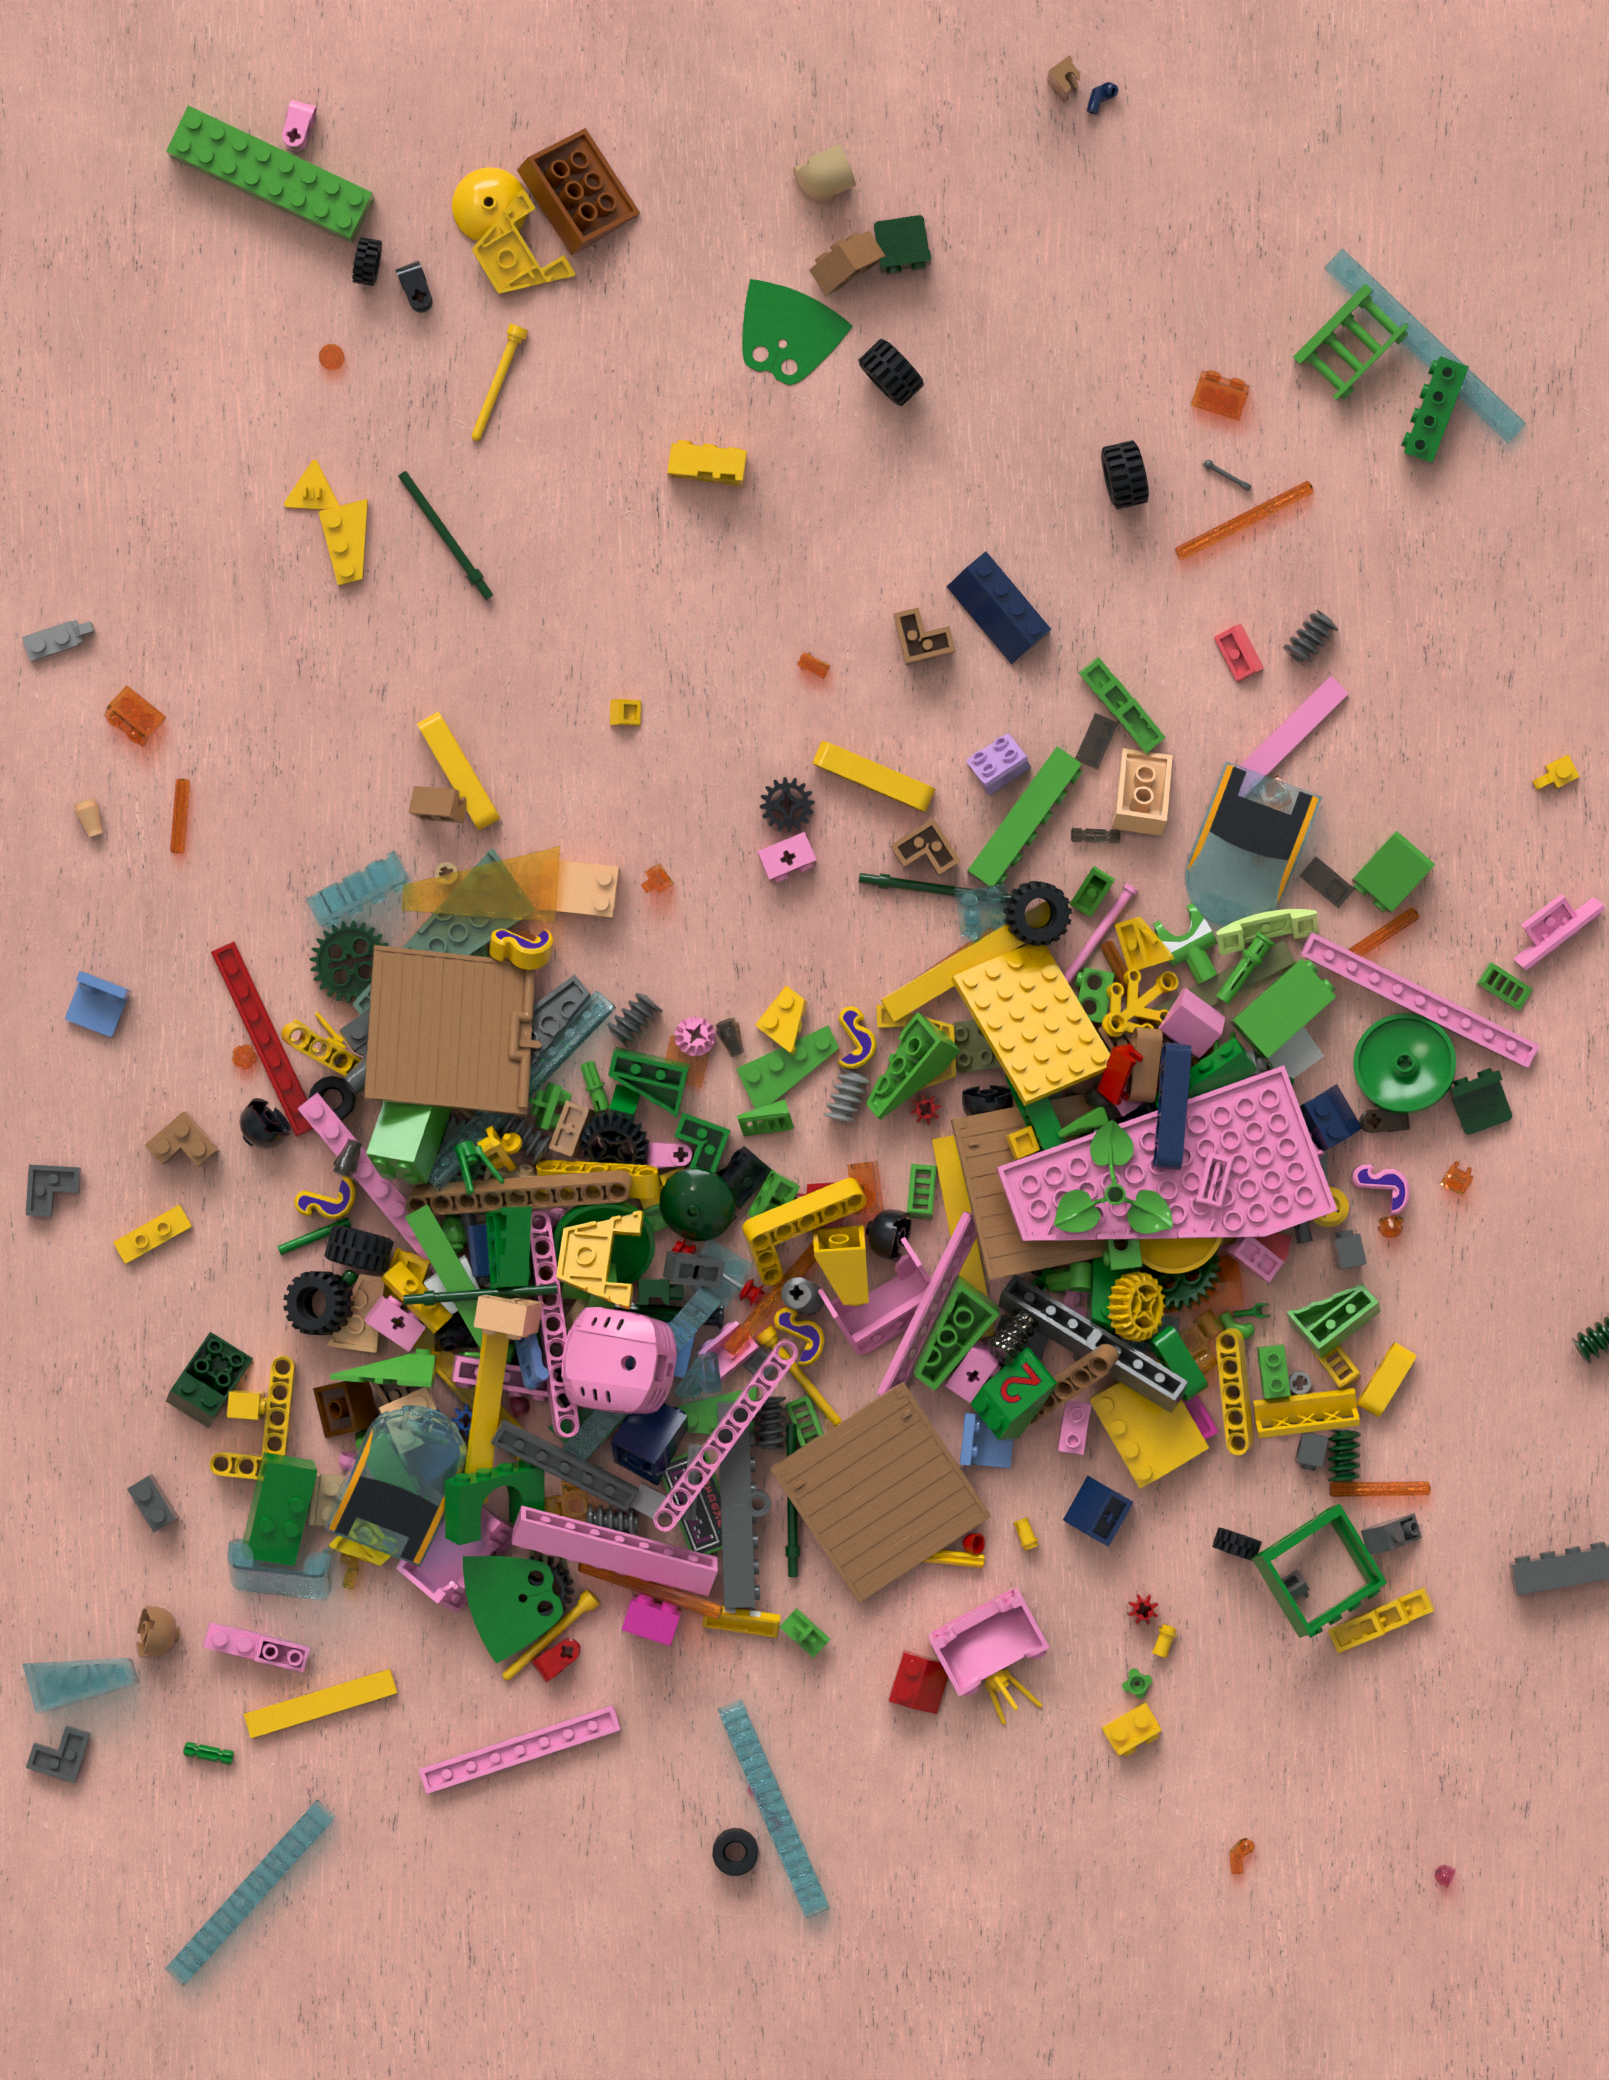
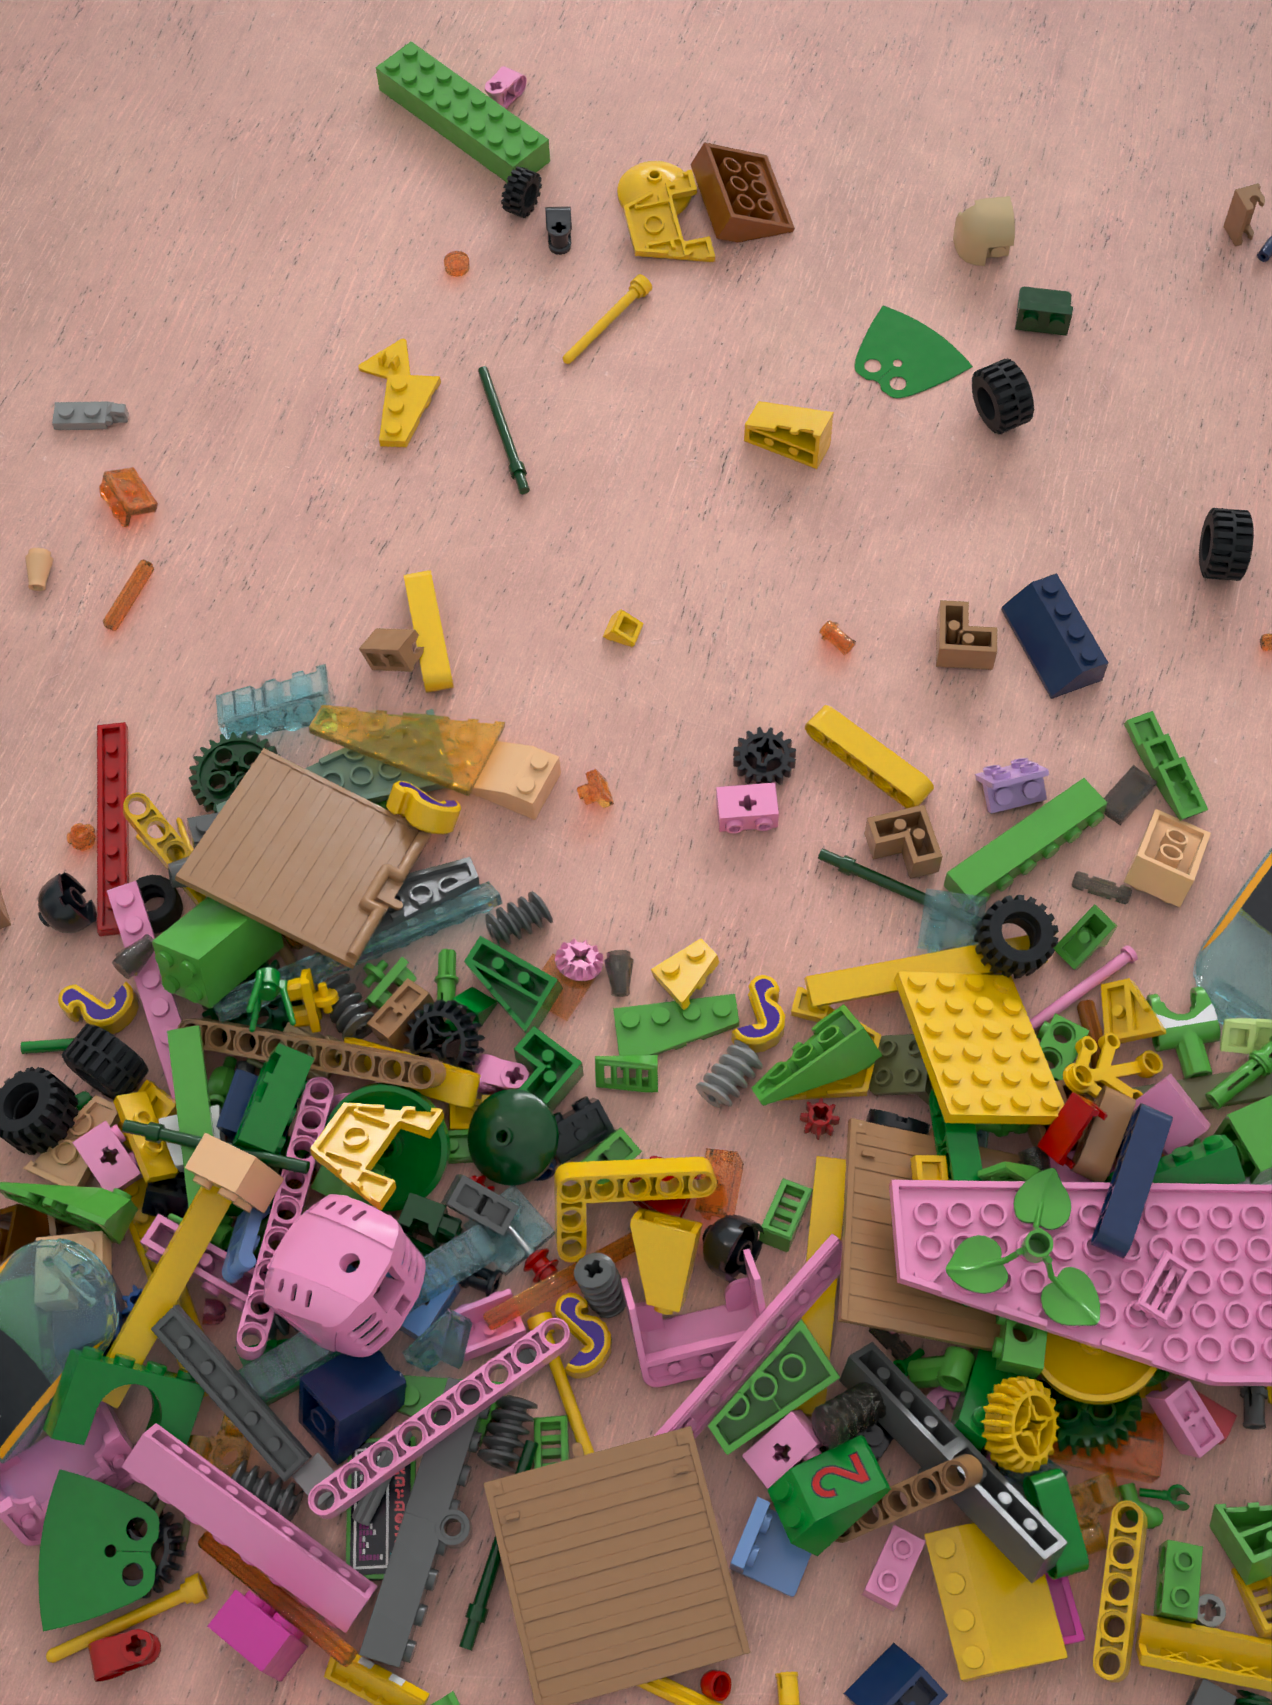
camera: 15 degrees right, 25 degrees down
(846, 261) = (982, 300): medium nougat brick -> none

